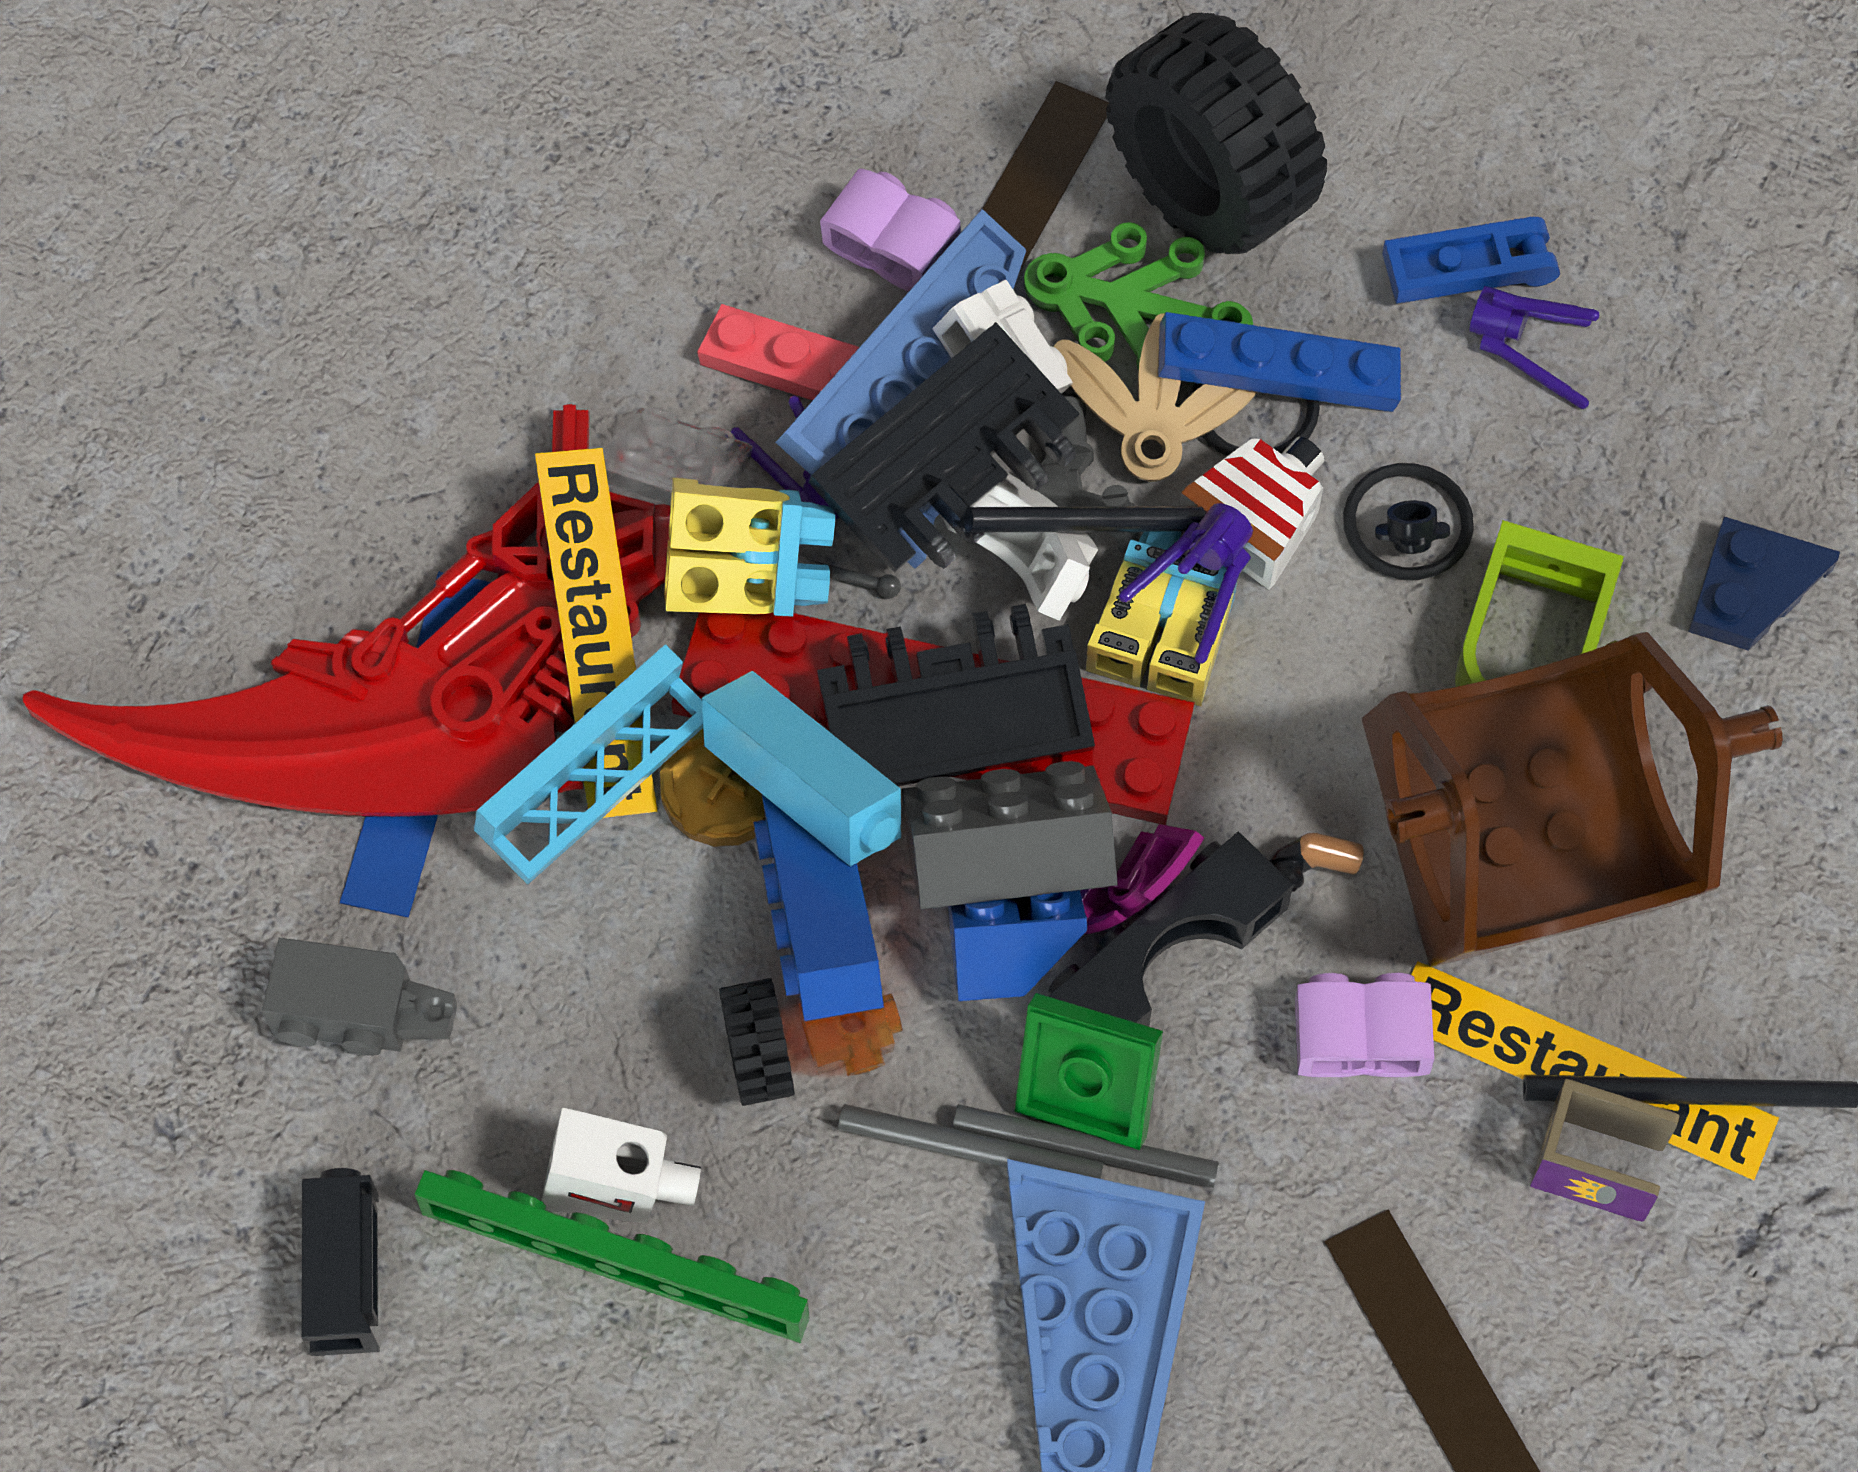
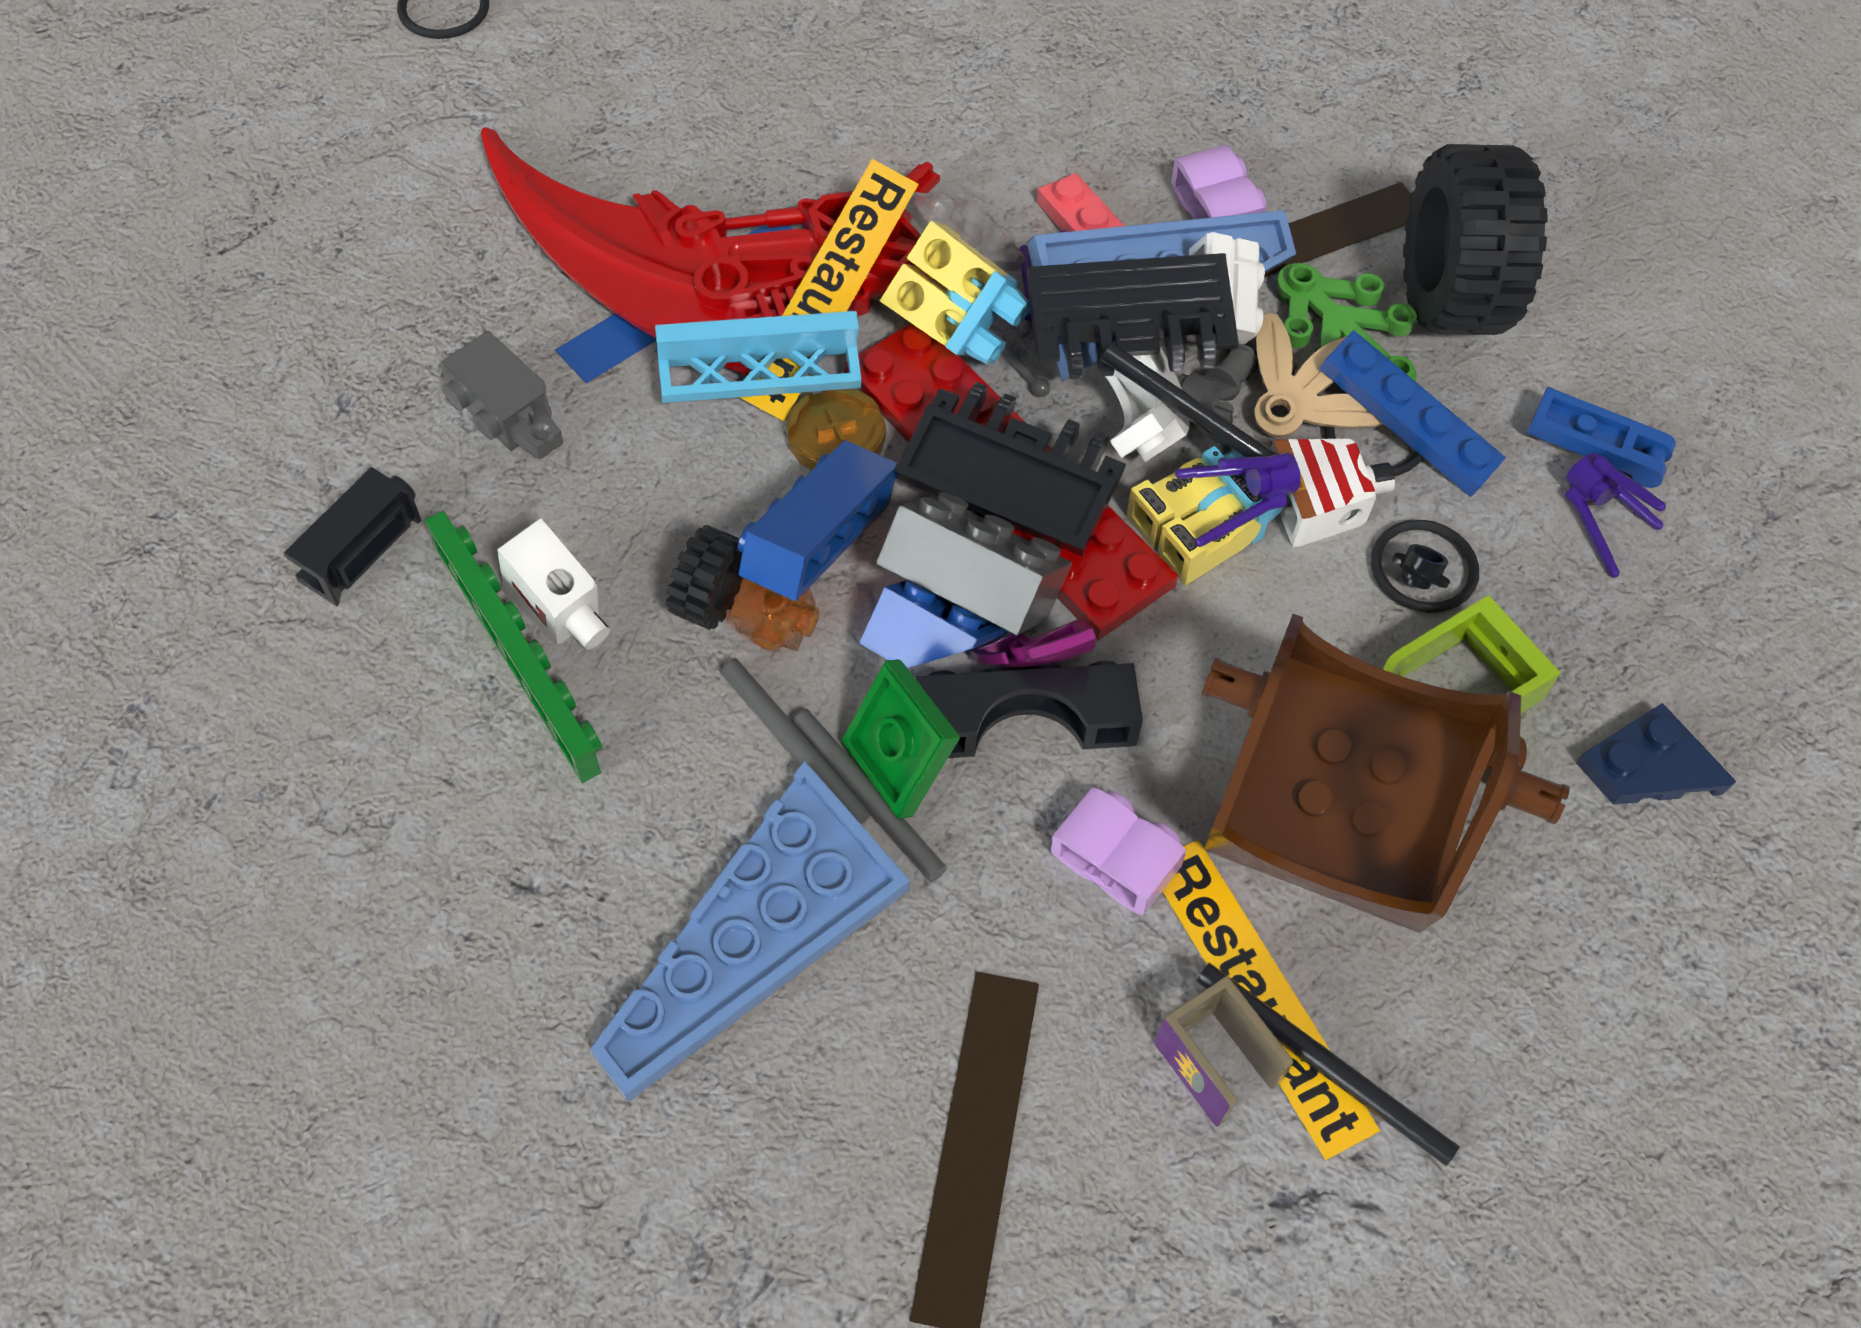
camera: 35 degrees right, 5 degrees down
(802, 768) = (876, 434): medium azure brick -> none
(1314, 851) = (1180, 717): medium nougat arm -> none

